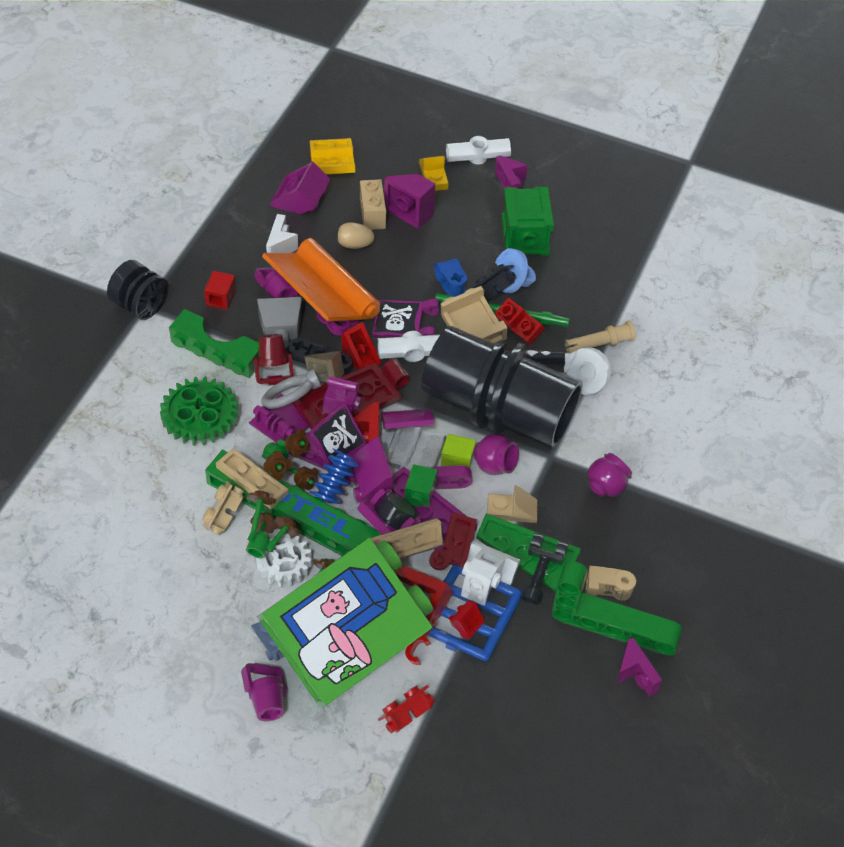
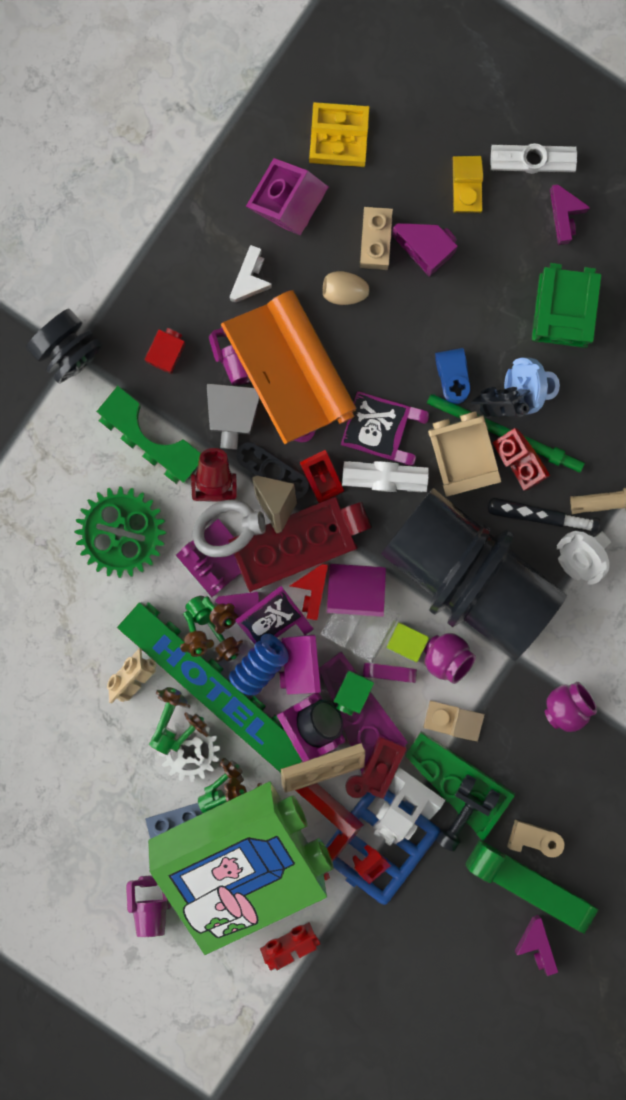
camera: 10 degrees right, 35 degrees up
(250, 476) = (166, 651): tan tile -> none
(341, 392) = (284, 560): magenta brick -> none

